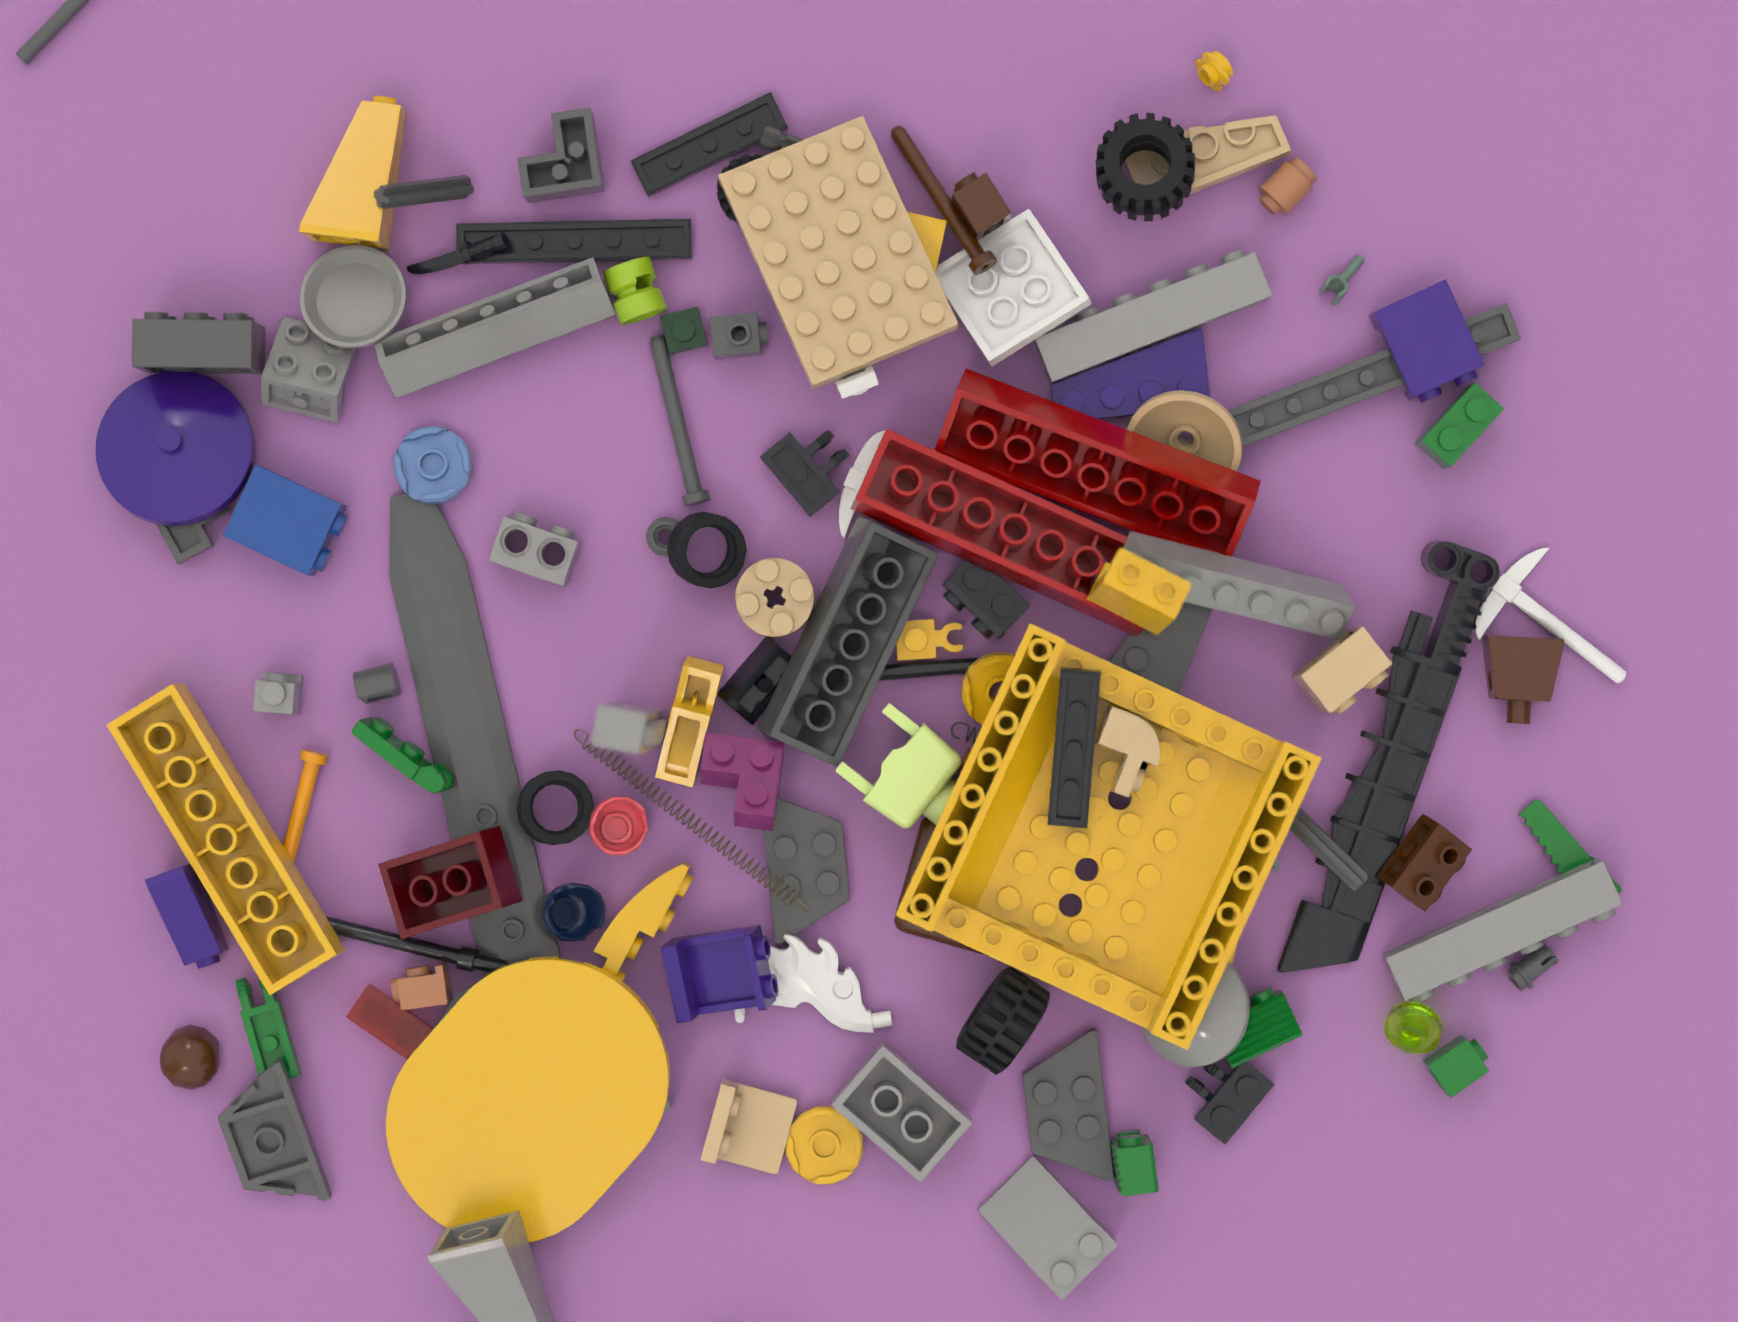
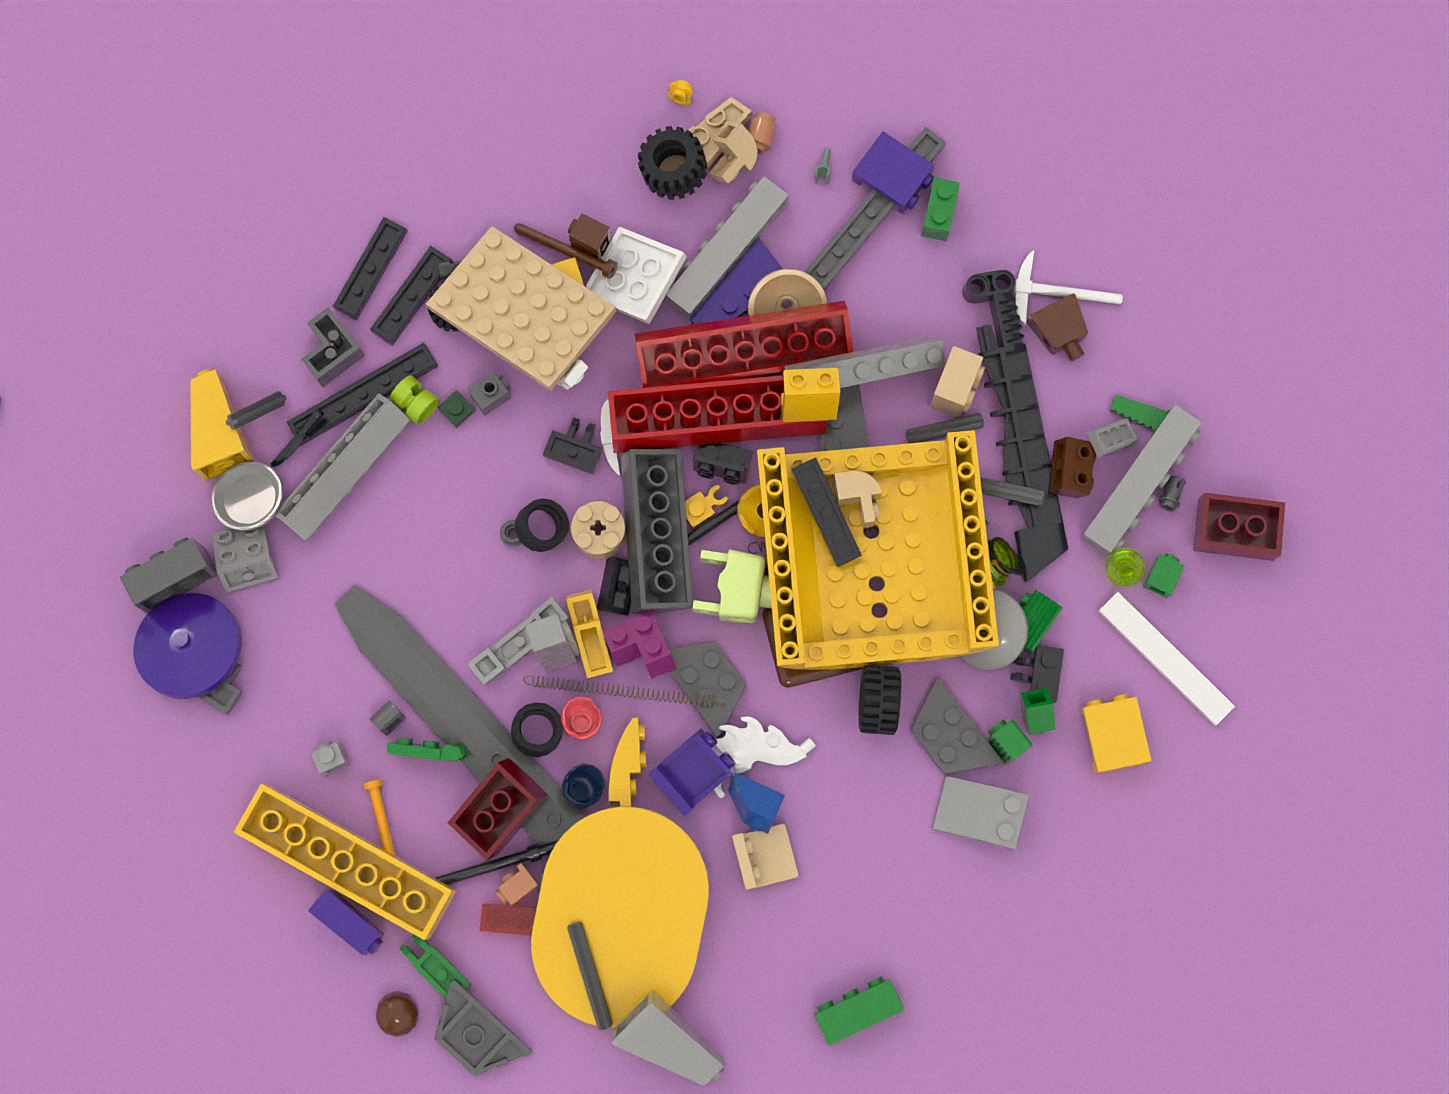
camera: 25 degrees left, 10 degrees down
(286, 521) = (278, 651): blue brick -> none
(432, 465) = (349, 569): medium blue tile -> none
(450, 1151) = (589, 975): none -> dark grey axle
(532, 558) = (439, 591): light grey brick -> none
(594, 681) = (513, 646): none -> light grey slope
(675, 77) = (370, 268): none -> black tile
(677, 423) = (517, 499): dark grey bar -> none
(775, 1056) = (755, 802): none -> blue slope
(824, 1145) = (817, 842): yellow tile -> none
(901, 1111) = (851, 791): light grey brick -> none
(1193, 1145) = (1038, 711): none -> green brick
(1241, 199) = (738, 150): none -> tan brick
(1264, 933) = (1003, 561): none -> piece
(1274, 1227) = (1116, 733): none -> yellow panel
(1293, 716) = (941, 429): none -> dark grey axle
(1395, 1169) = (1166, 659): none -> white tile
(1498, 854) = (1112, 437): none -> light grey plate
(1589, 1060) = (1239, 526): none -> dark red brick

